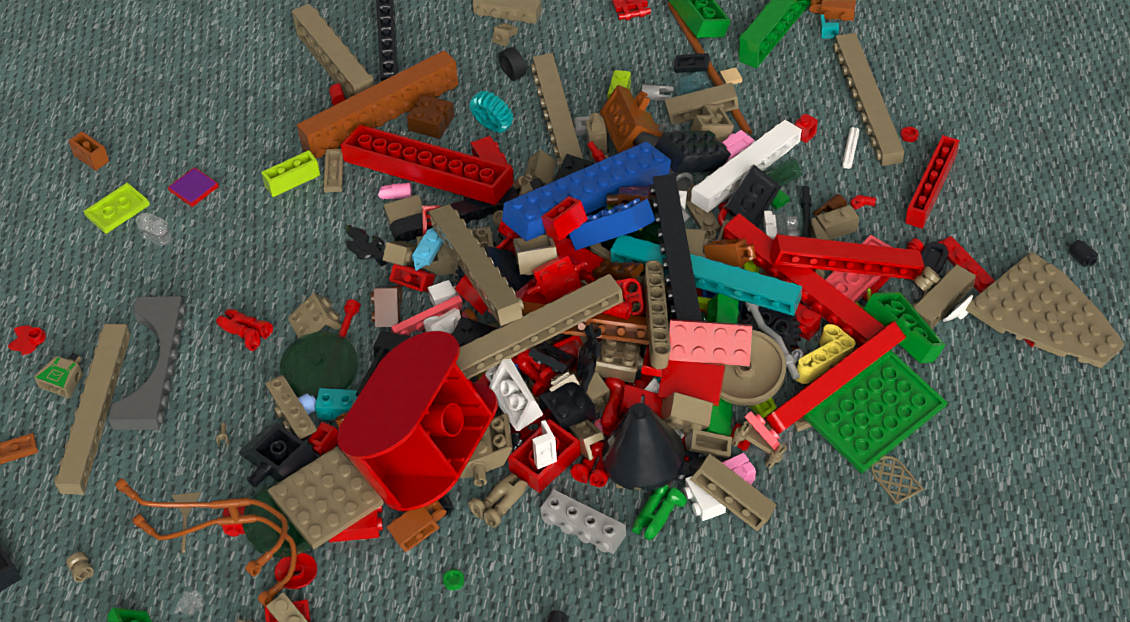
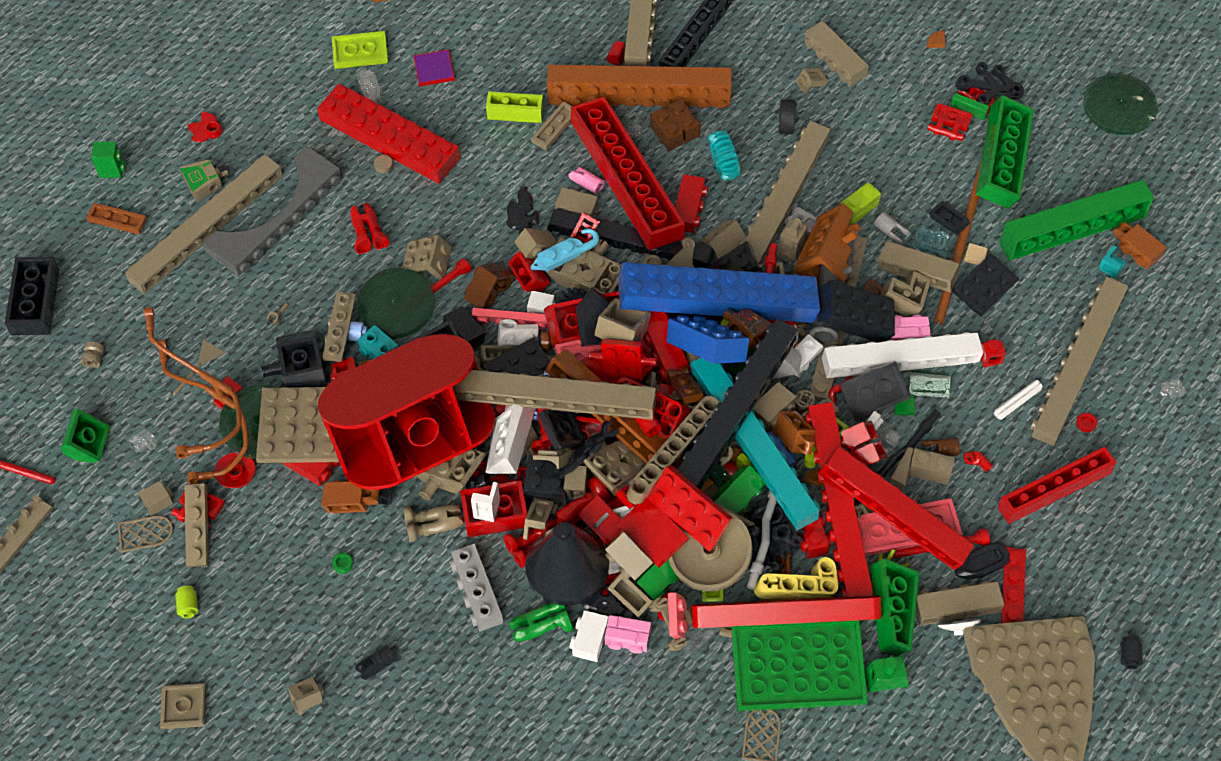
camera: 35 degrees right, 10 degrees up
(198, 250) = (389, 133): none -> red brick
(213, 276) = (383, 164): none -> dark tan tile
(476, 265) = (565, 301): dark tan brick -> none
(564, 218) = (663, 309): red brick -> none
(733, 492) = (607, 651): dark tan brick -> none
(757, 90) = (985, 285): none -> black plate
(777, 224) = (860, 434): none -> piece
(927, 279) = (960, 576): dark tan wheel -> none
(942, 78) = (1172, 388): none -> clear arm
(947, 368) = (888, 674): none -> green torso

